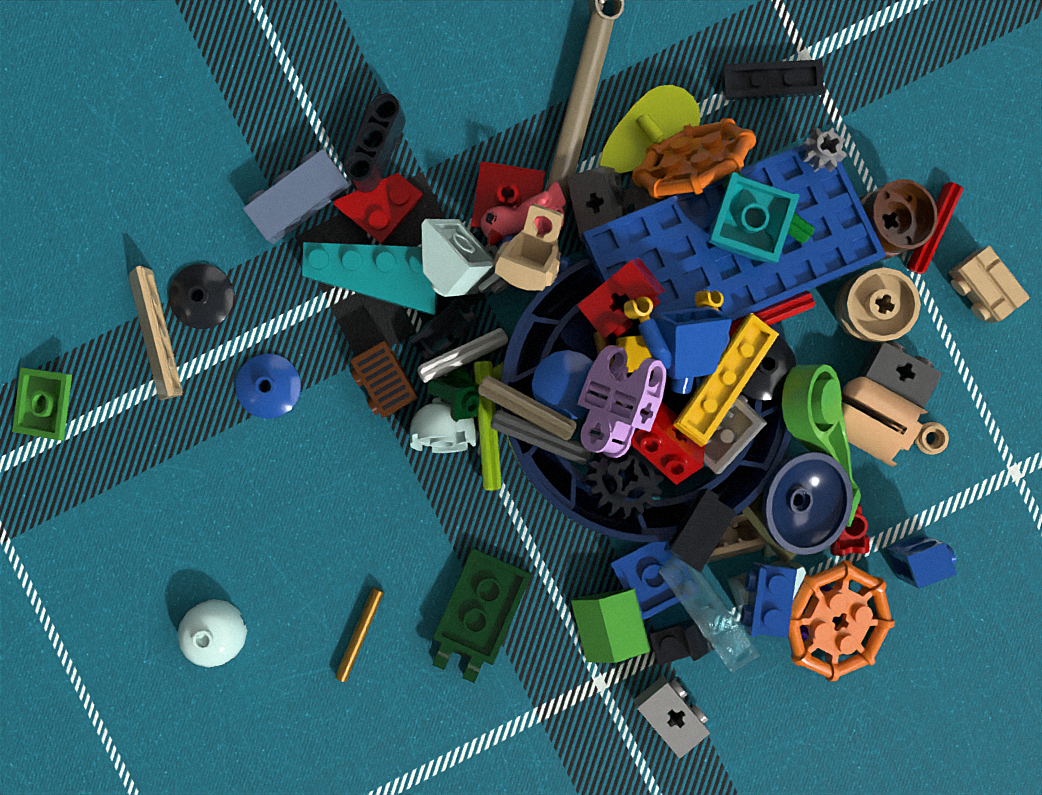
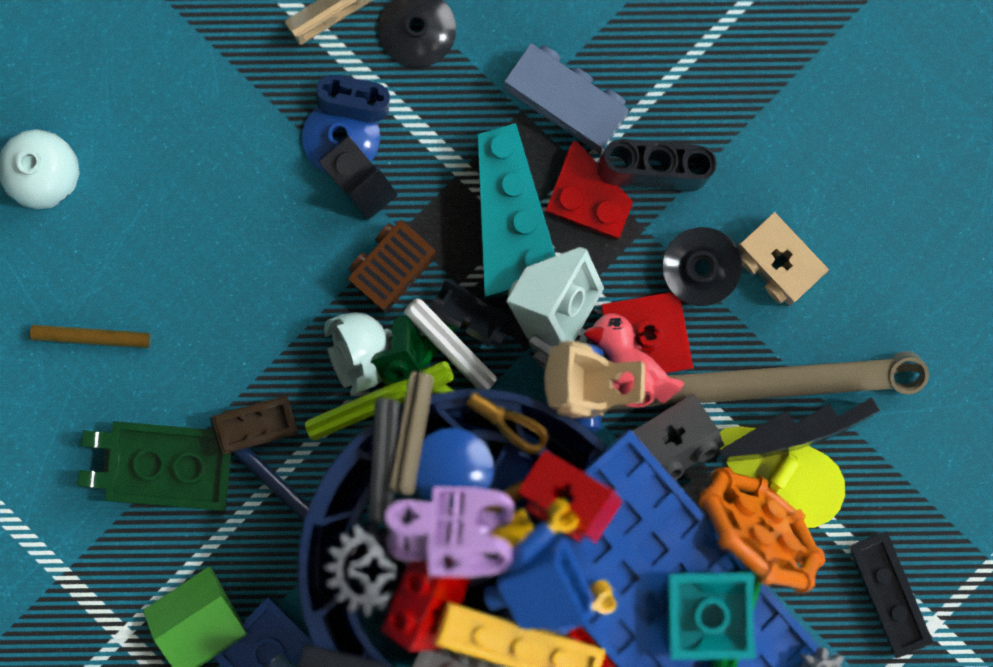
camera: 70 degrees right, 5 degrees down
(239, 366) = (352, 98): none -> dark blue beam
(304, 383) = (357, 177): none -> black slope
(464, 118) = (696, 246): none -> black dish
(473, 530) = (253, 425): none -> dark brown plate
(496, 59) = (802, 264): none -> tan brick
(521, 529) = (273, 482): none -> dark blue bar
(535, 335) = (498, 414): none -> pearl gold piece
(622, 116) = (785, 435): none -> black slope

